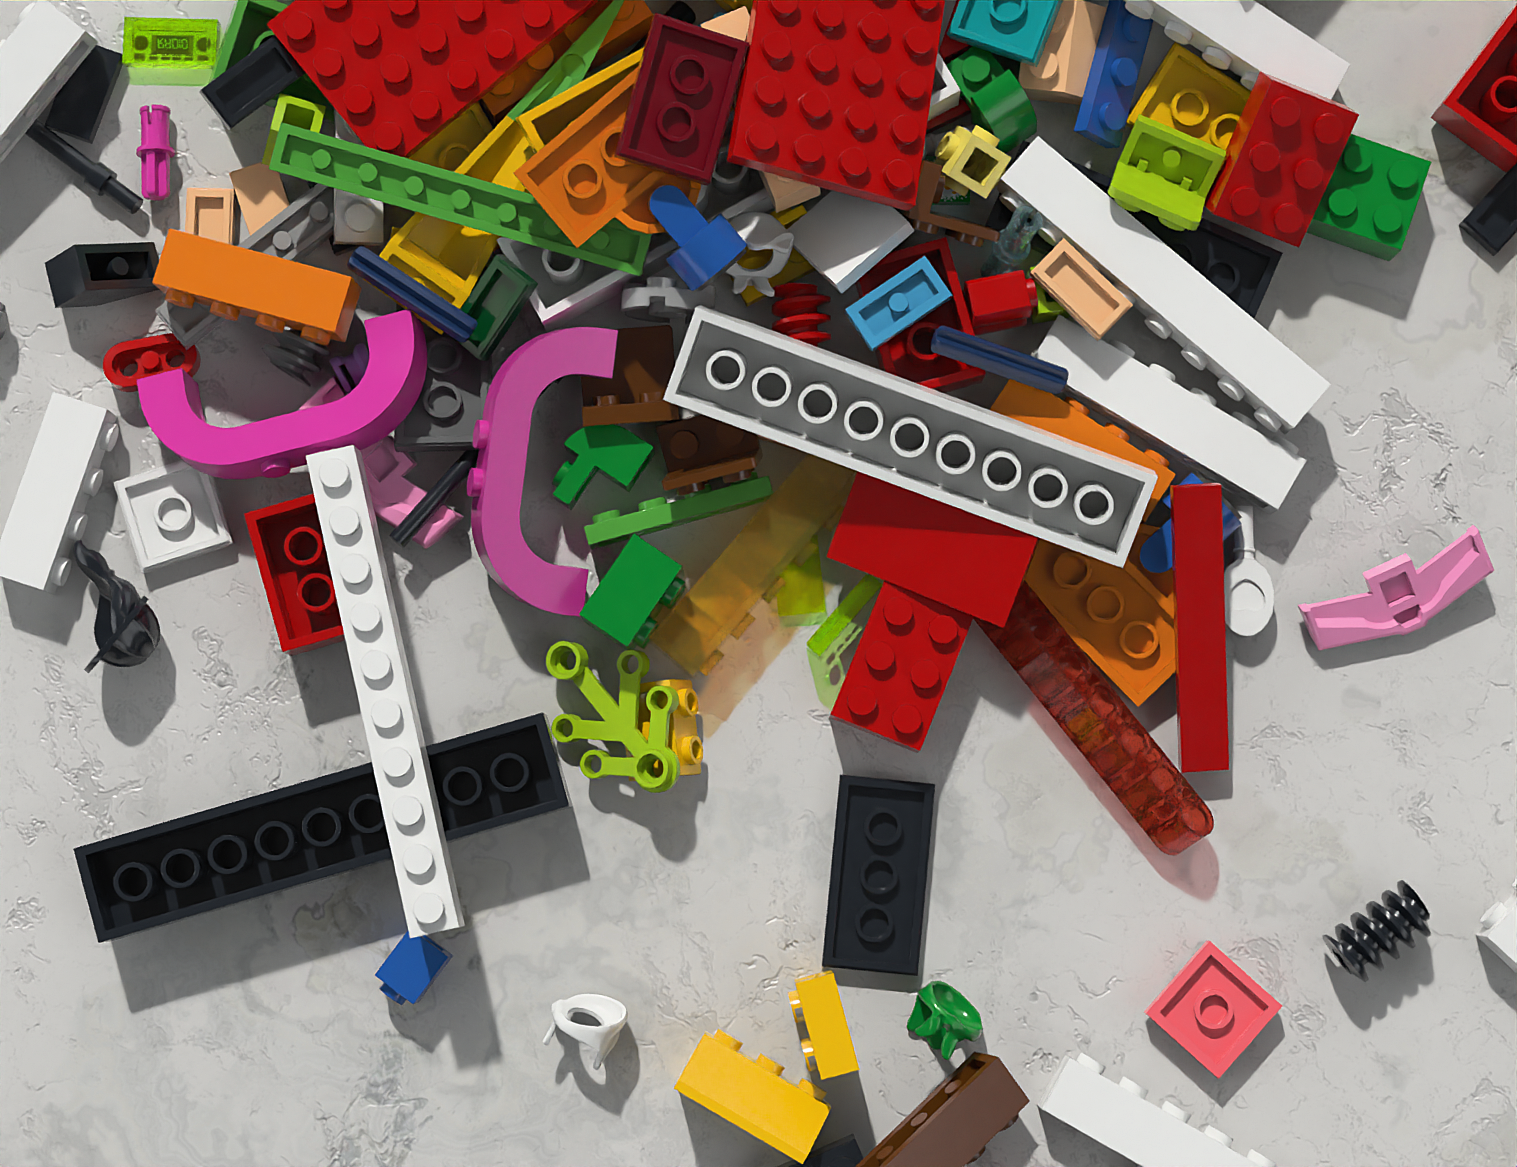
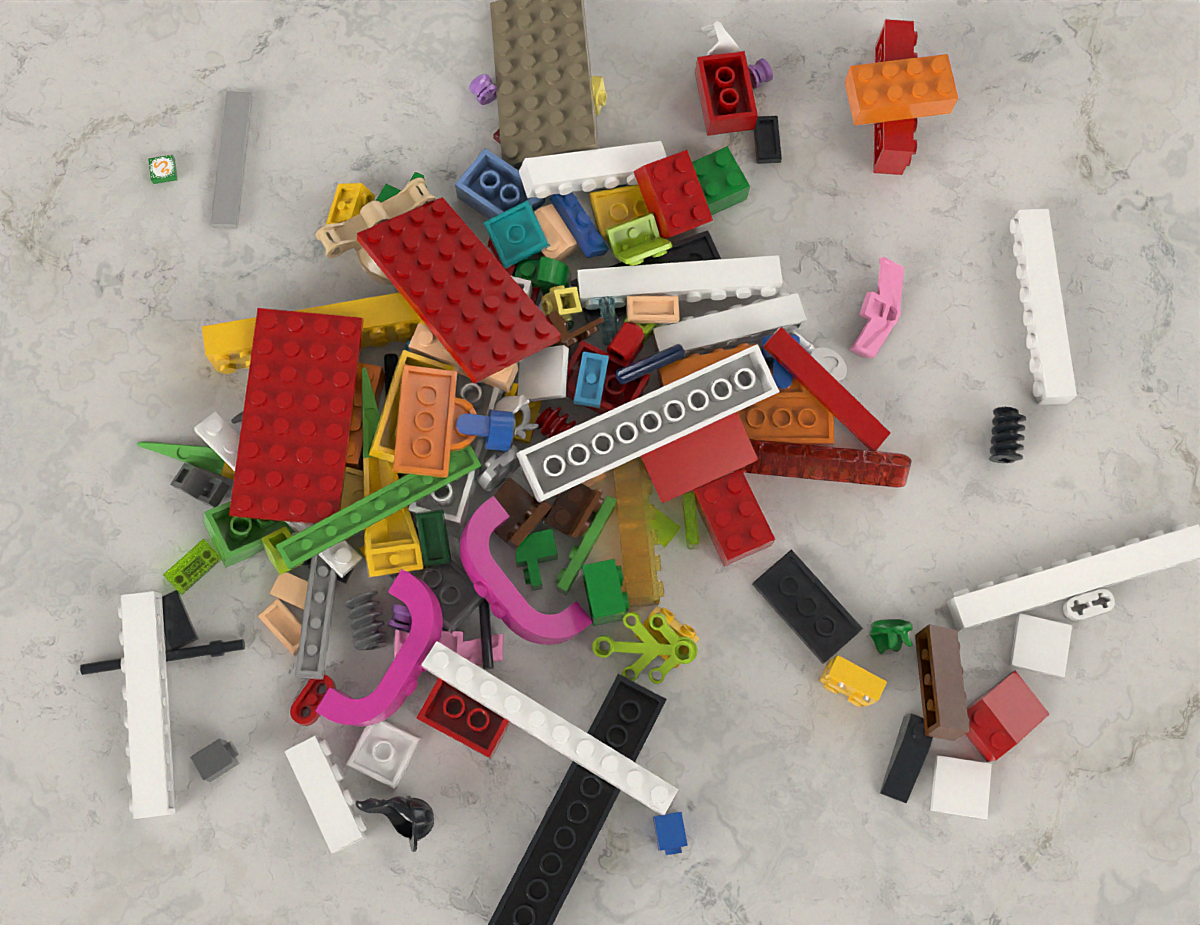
camera: 50 degrees left, 10 degrees down
(101, 273) = (256, 684): black slope -> none
(155, 152) = (229, 615): dark pink axle -> none
(252, 82) = (245, 544): black tile -> none
(256, 286) = (329, 621): orange brick -> none
(412, 294) = (396, 562): dark blue axle -> none
(605, 1009) = (768, 768): white piece -> none
(681, 99) = (432, 378): dark red tile -> none
(754, 1094) = (854, 738): yellow slope -> none
(1213, 1009) = (981, 527): coral plate -> none

